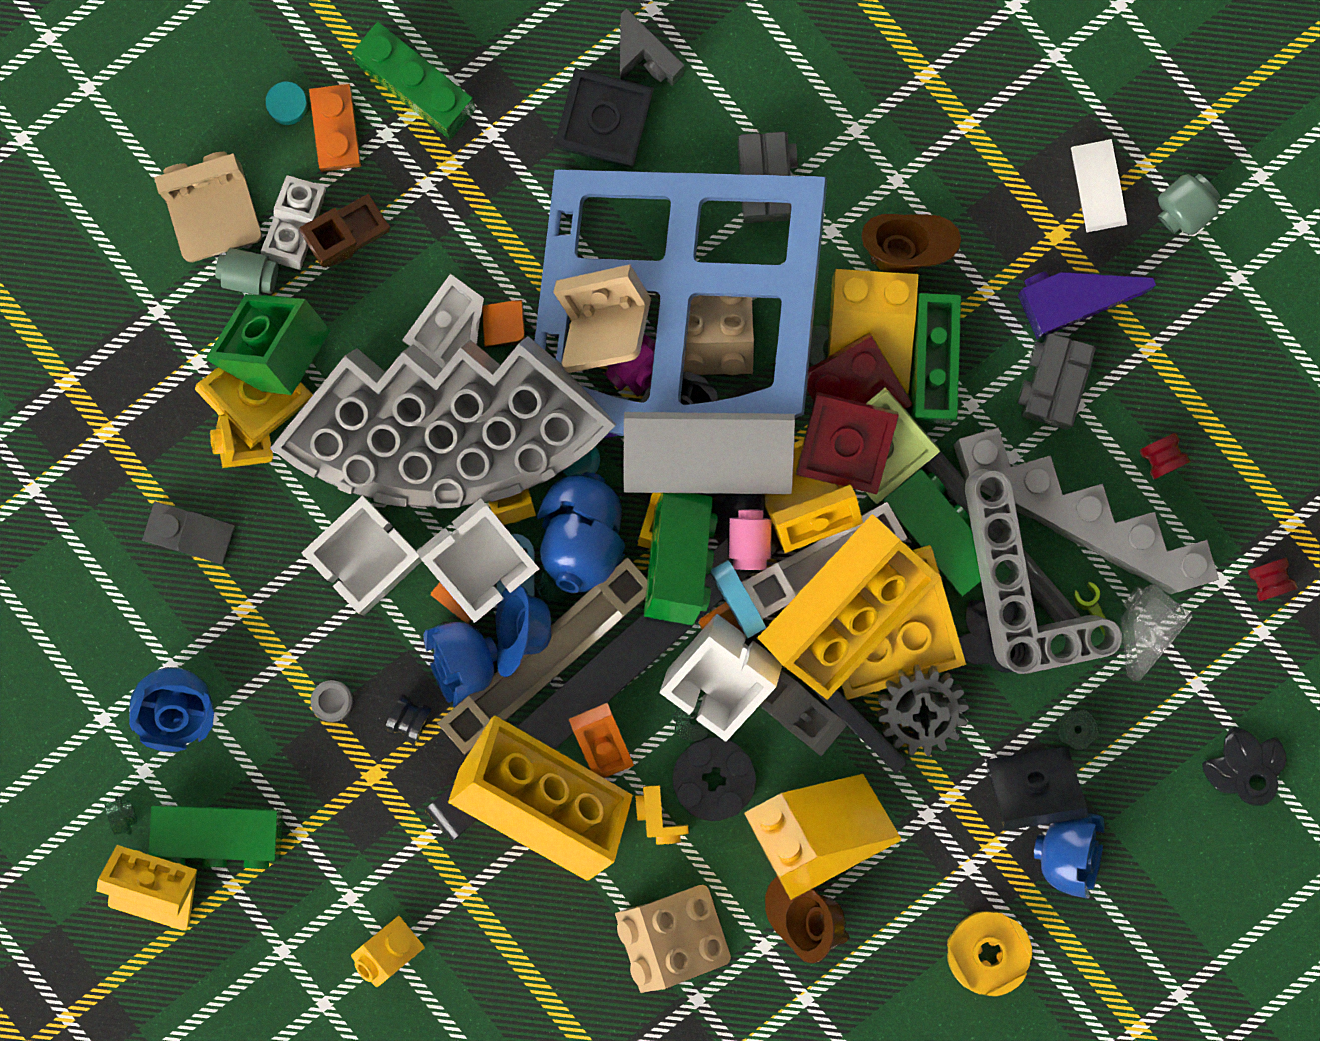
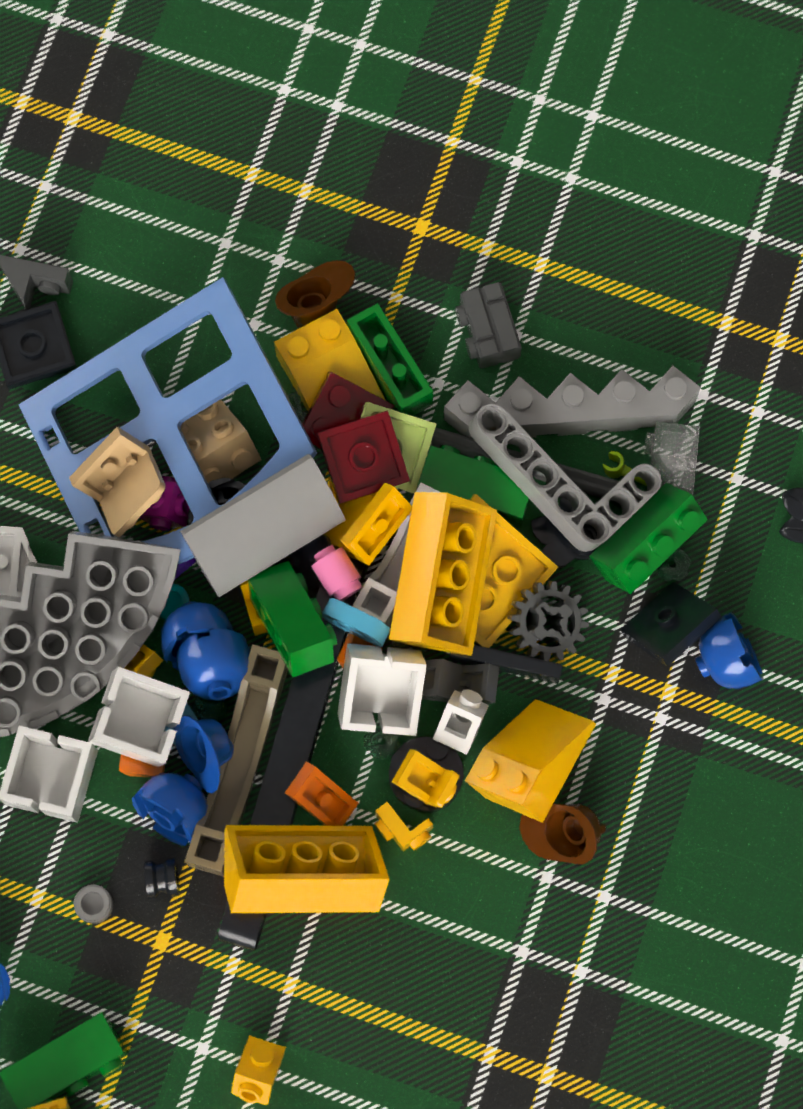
camera: 30 degrees left, 10 degrees down
(503, 323) = (49, 538): orange slope -> none
(673, 939) = (472, 915): tan bracket -> none
(708, 790) = (426, 779): none -> yellow bracket
(766, 156) = (169, 293): dark grey brick -> none
(785, 749) = (461, 720): none -> white brick
(981, 976) = (739, 764): yellow plate -> none
(1071, 694) = (648, 538): none -> green brick
(1072, 297) = (463, 258): dark purple slope -> none
(1099, 185) = (428, 172): white slope -> none
(1164, 455) = (602, 329): dark red wheel -> none
(1188, 204) = (501, 145): sand green head -> none
(1272, 579) = (739, 367): dark red wheel -> none

